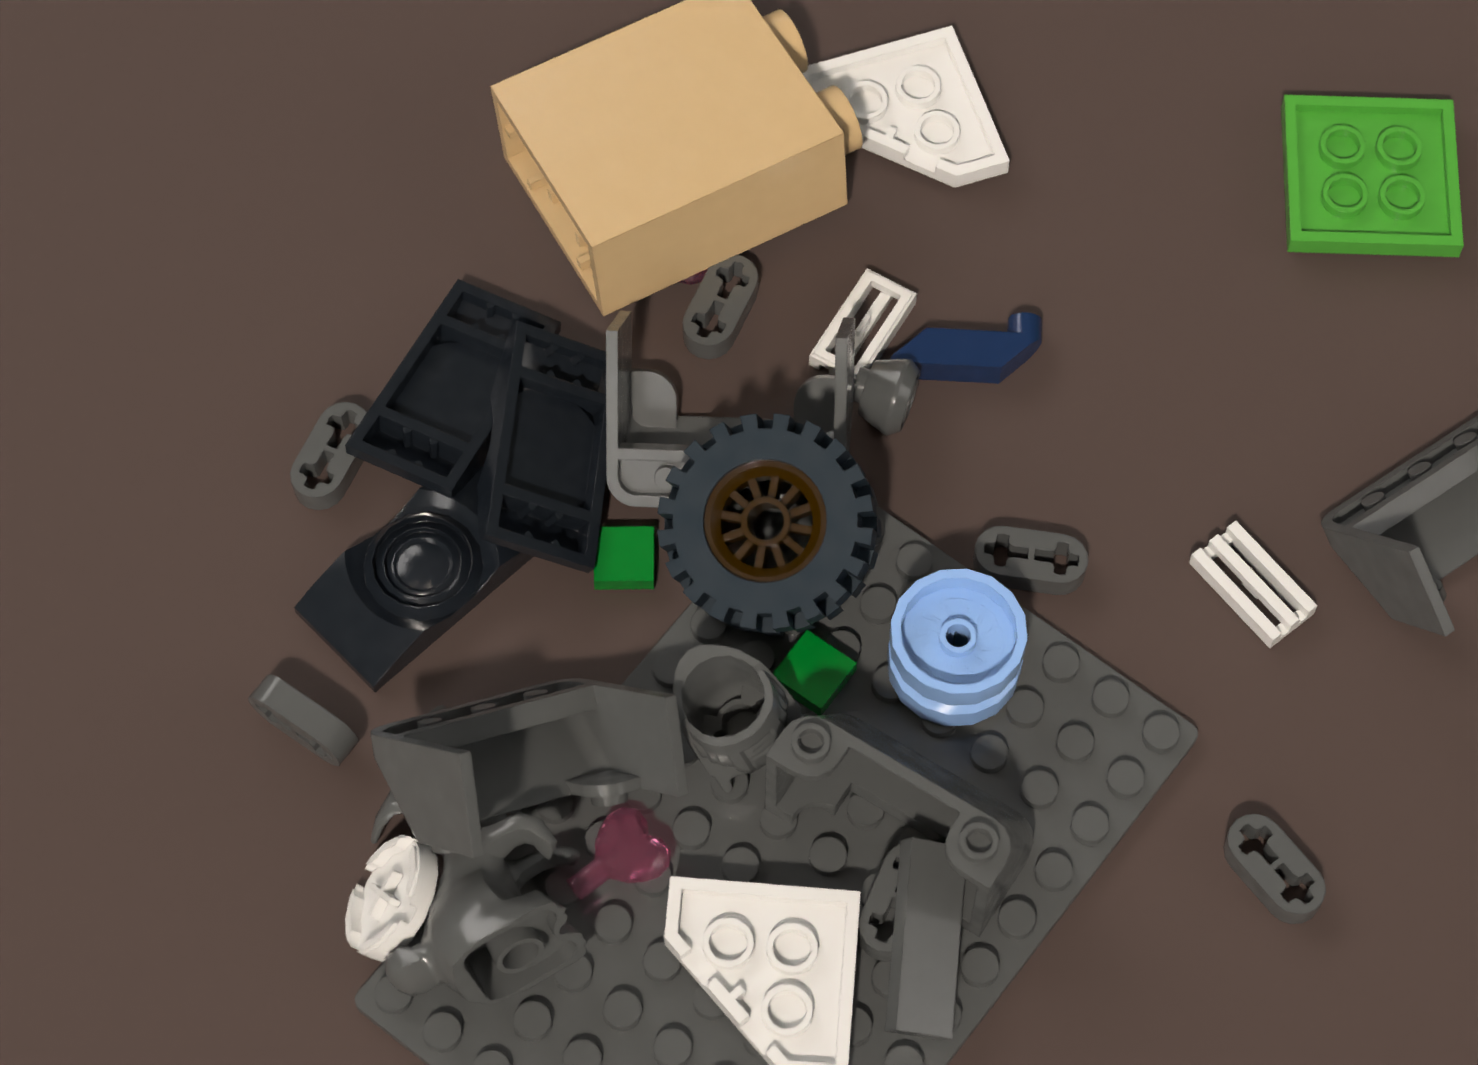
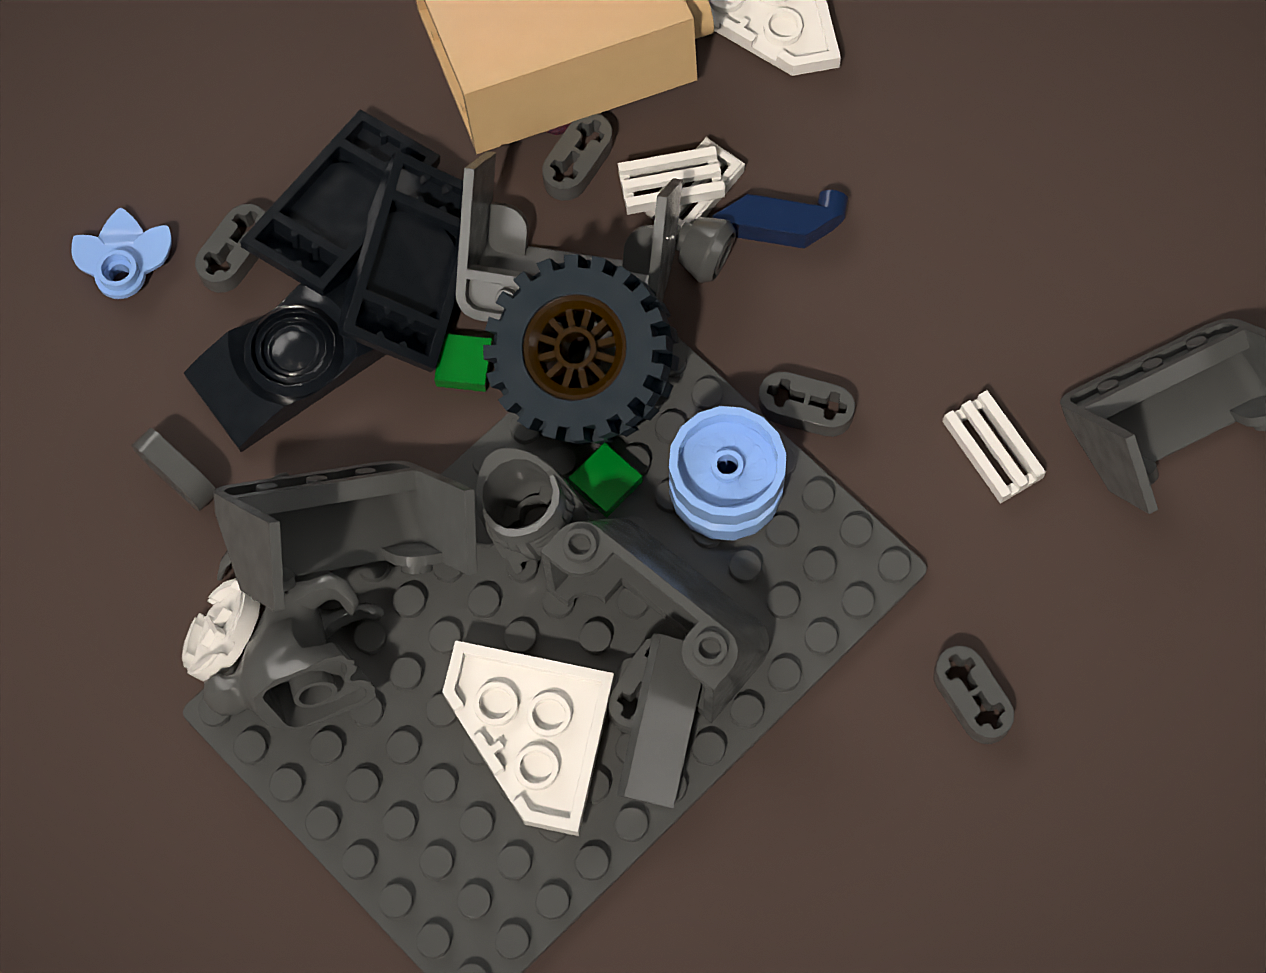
camera: 10 degrees right, 5 degrees up
(196, 472) = (119, 249): none -> light blue plate
(622, 853) = (421, 615): clear pink rock -> none
(826, 313) = (661, 169): none -> white tile
(1371, 176) = (1151, 103): bright green plate -> none

